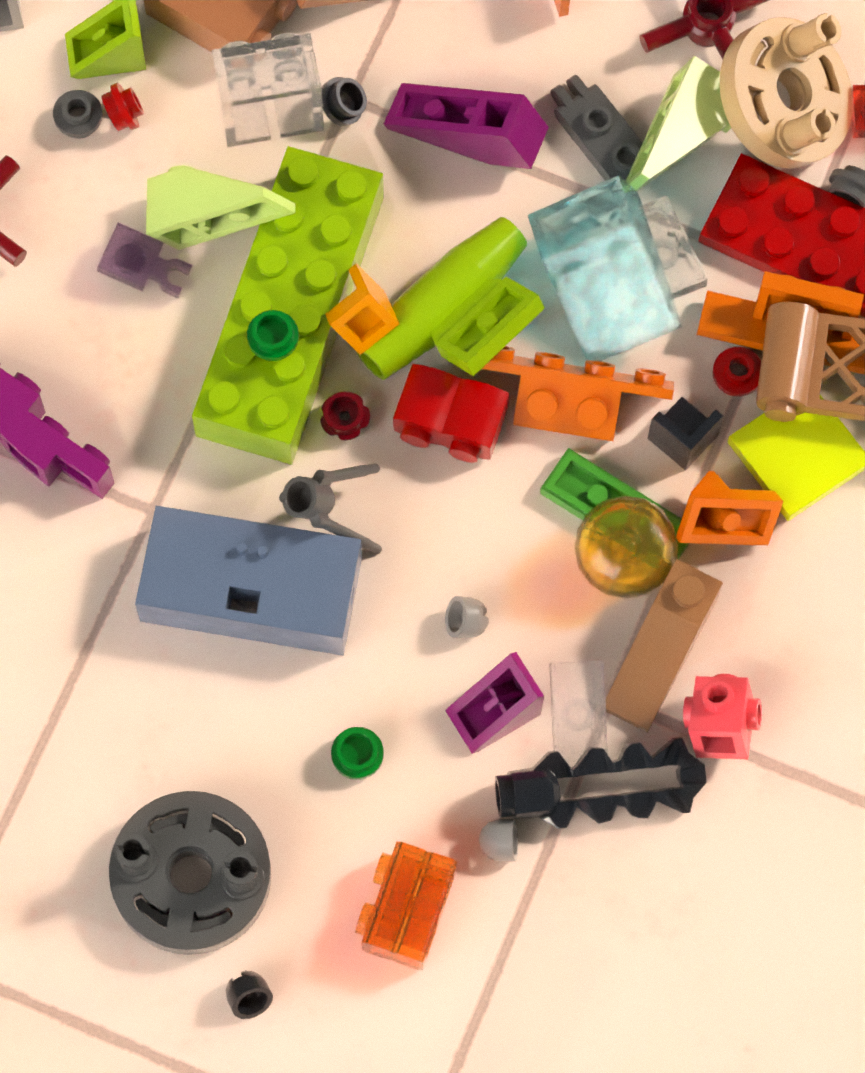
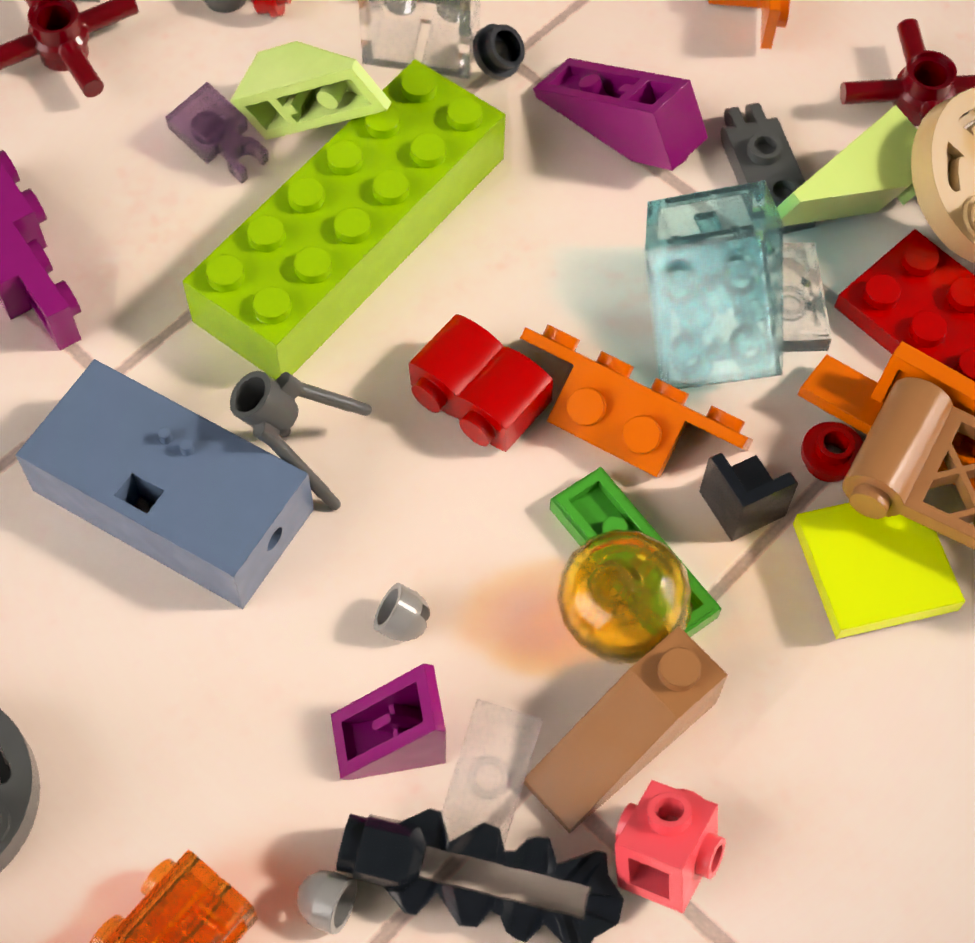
camera: 20 degrees right, 10 degrees down
(272, 335) = (305, 220): green plate -> none
(341, 403) = (357, 336): dark red plate -> none
(357, 753) = (201, 726): green plate -> none
(364, 314) = (419, 239): light orange panel -> none
(460, 306) = (530, 272): lime plate -> none
(728, 515) = (763, 601): orange slope -> none

